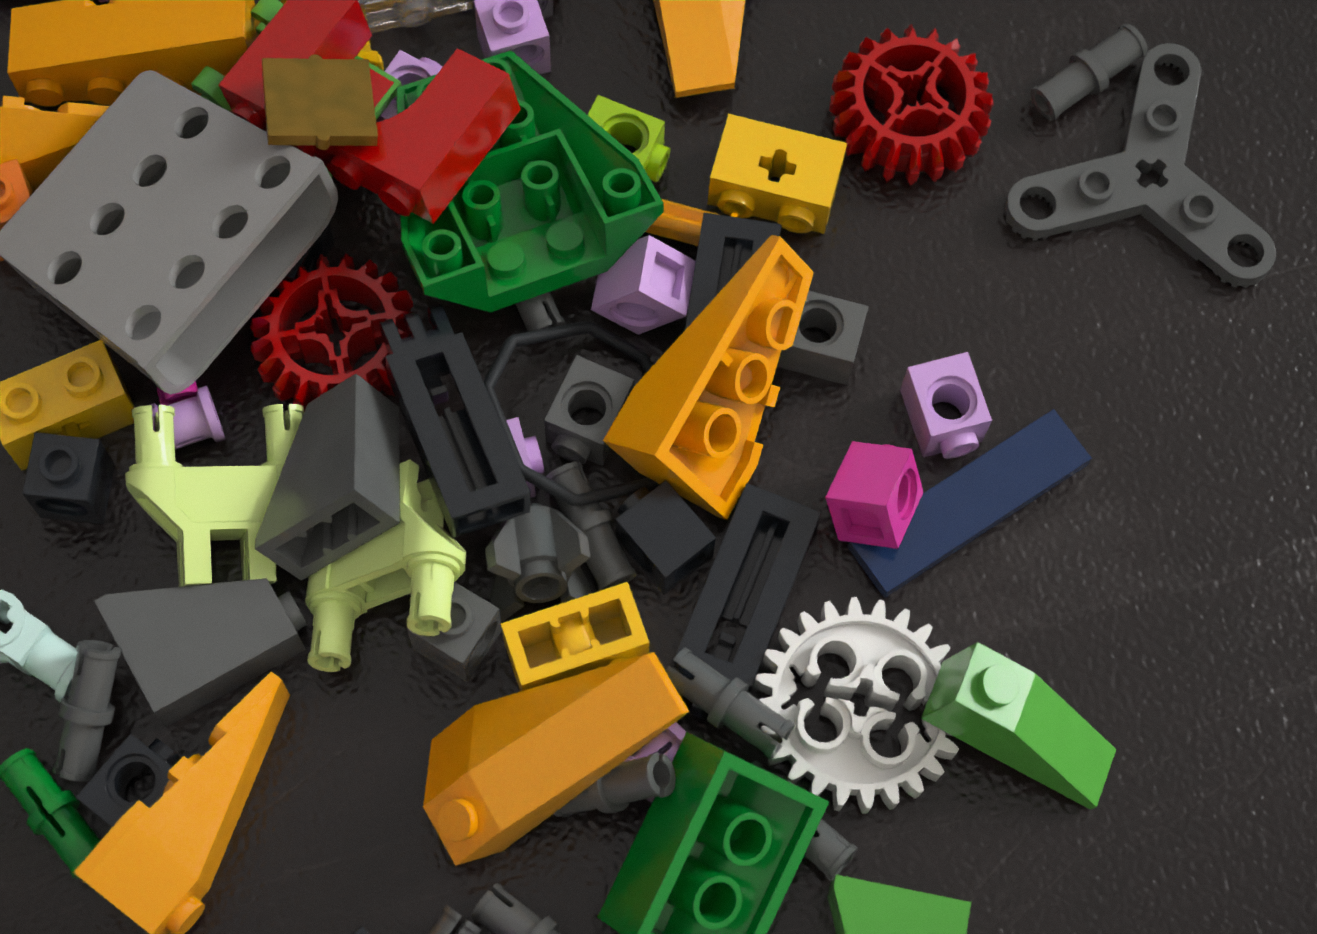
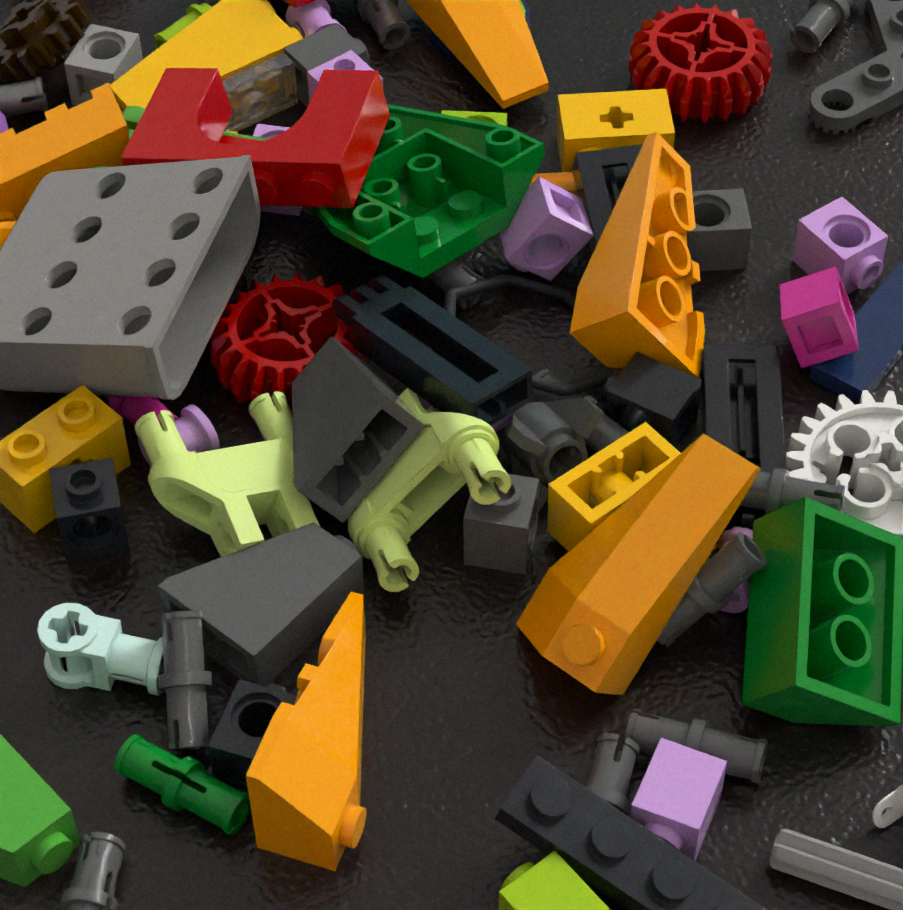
camera: 15 degrees left, 20 degrees down
(319, 102) = (222, 131): pearl gold piece -> none
(585, 387) = (541, 329): dark grey brick -> none

